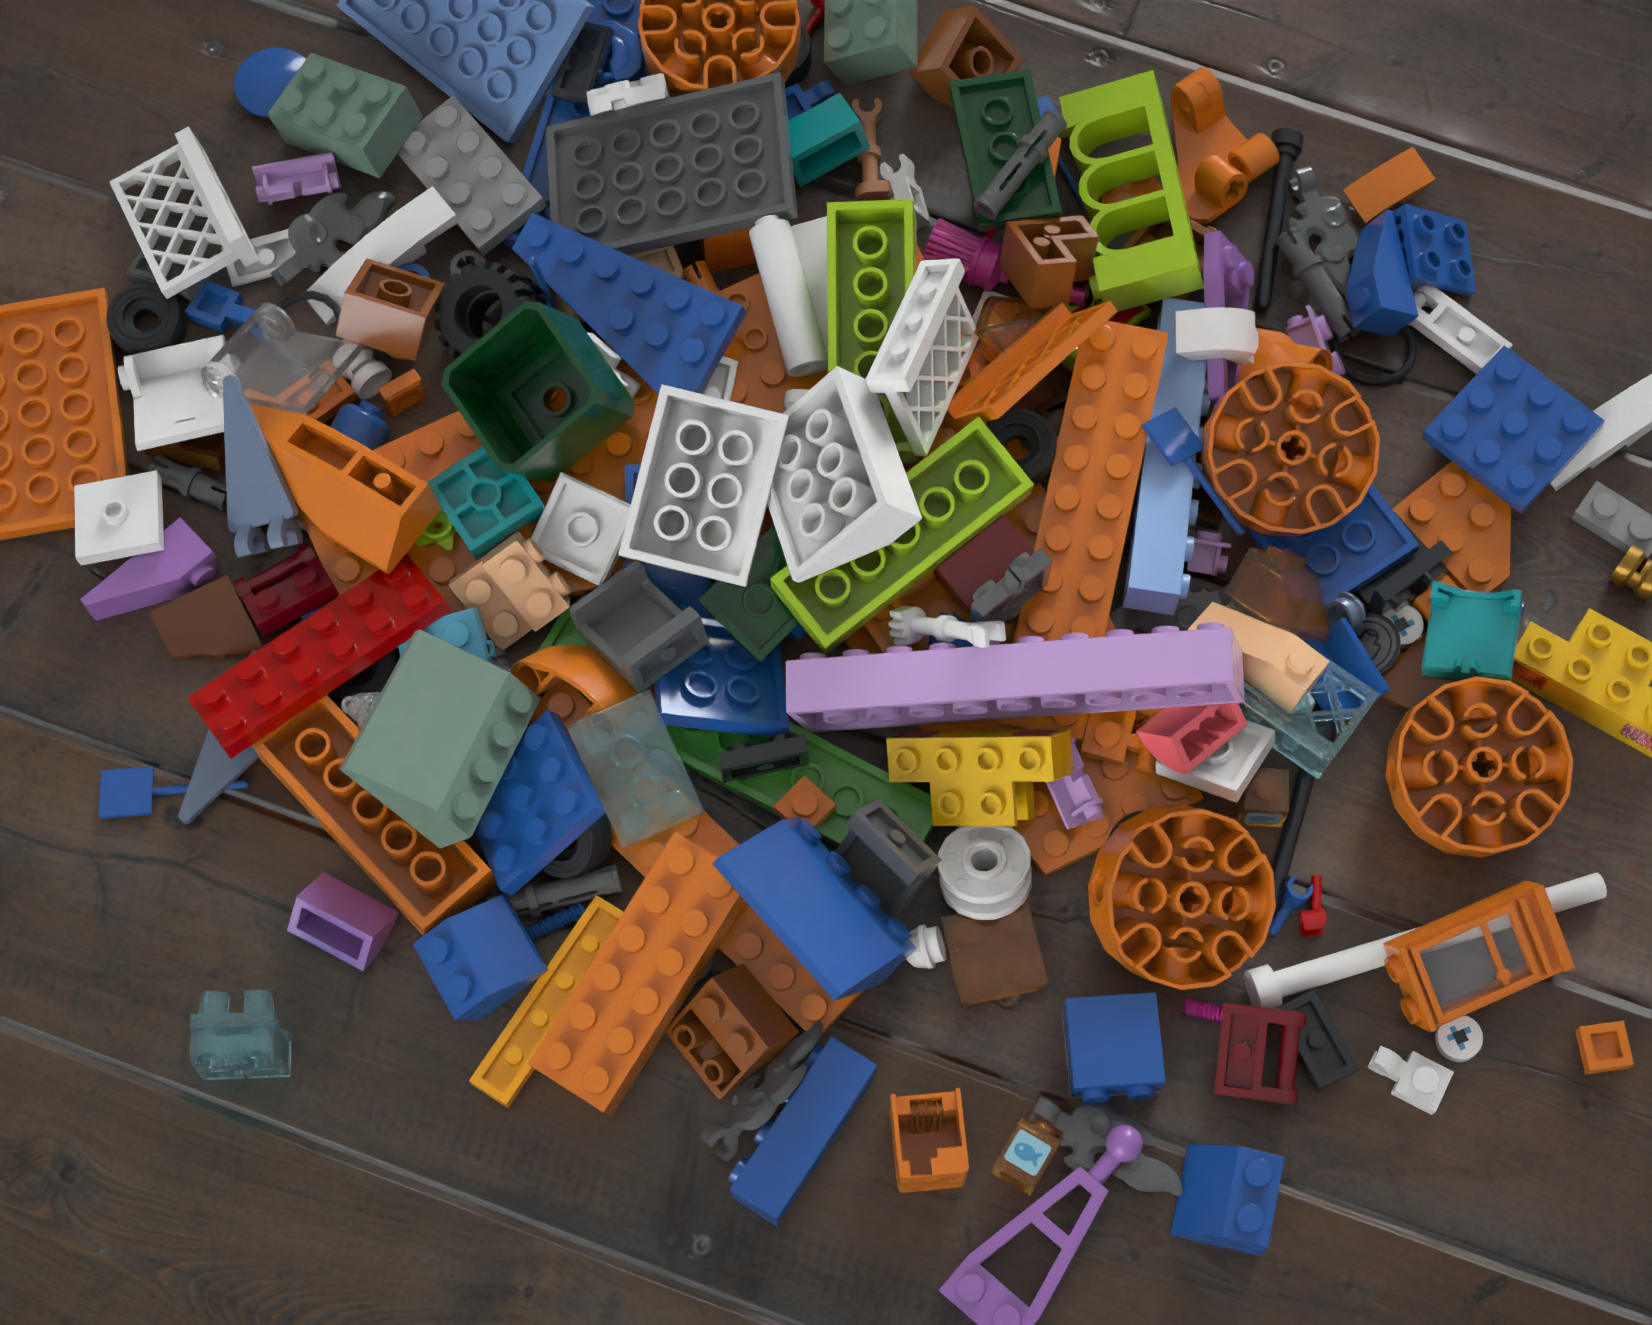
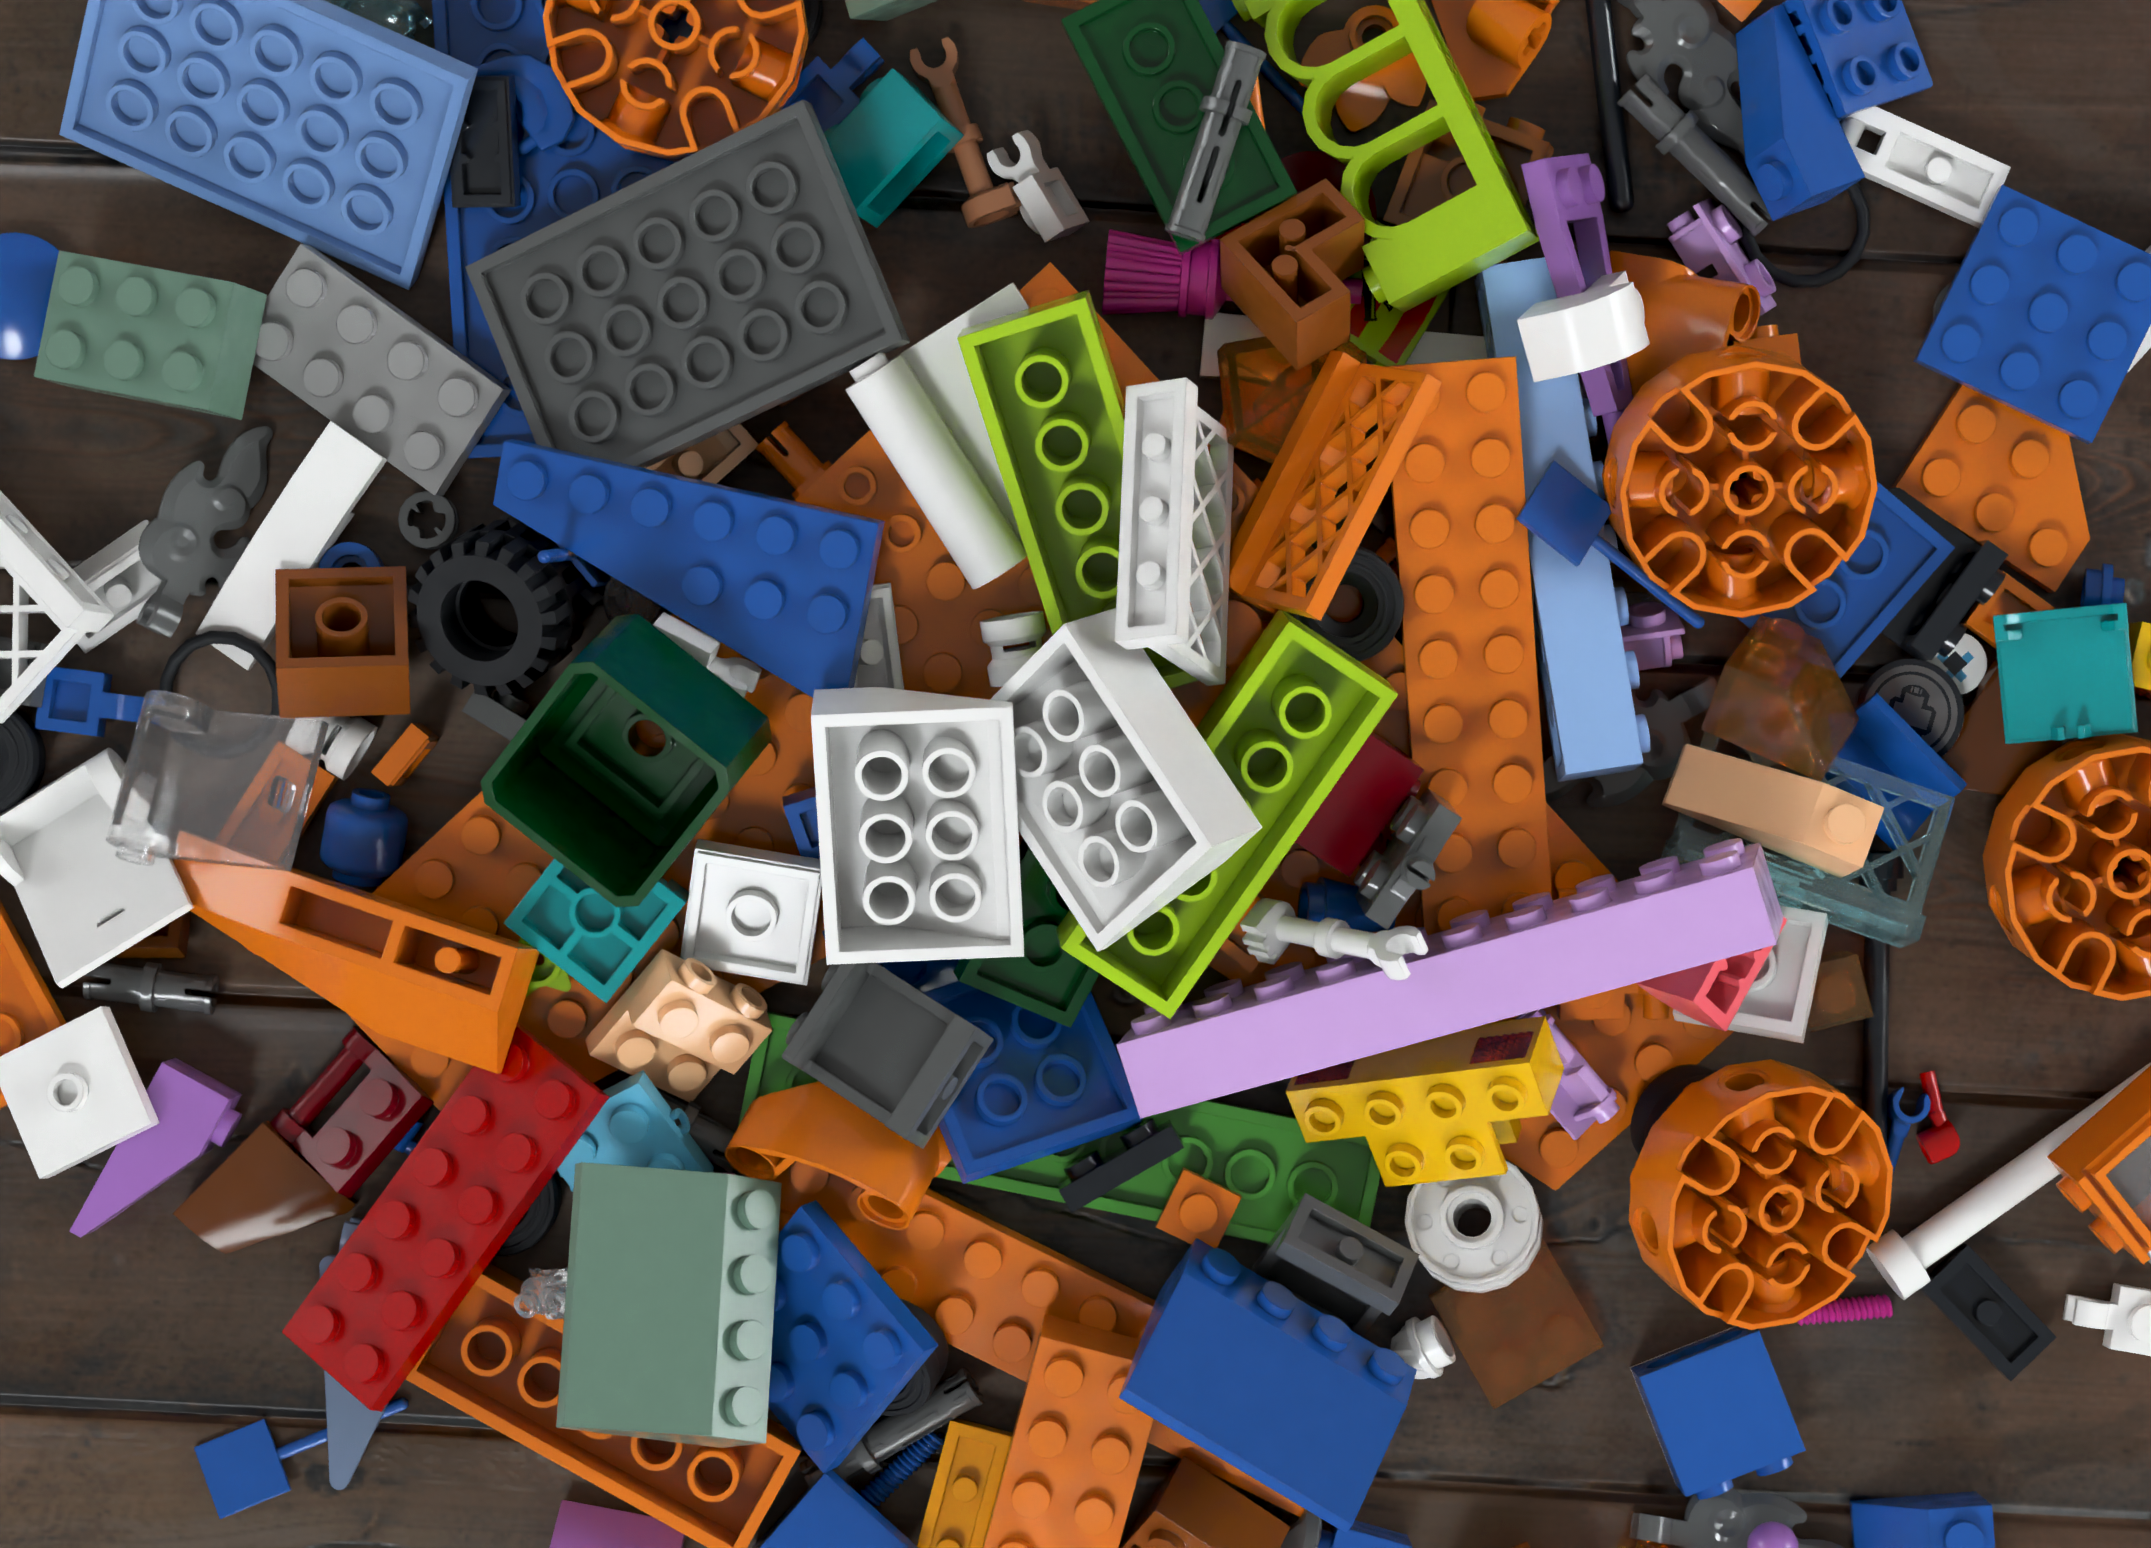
camera: 20 degrees left, 20 degrees up
(254, 481) = (248, 981): sand blue flag -> none
(296, 178) = (90, 470): lavender hinge -> none
(627, 94) = (584, 188): white plate -> none
(635, 768) = (953, 1256): clear light blue plate -> none
(1244, 1052) = (1896, 1360): dark red plate -> none
(1348, 607) = (1872, 674): sand blue plate -> none

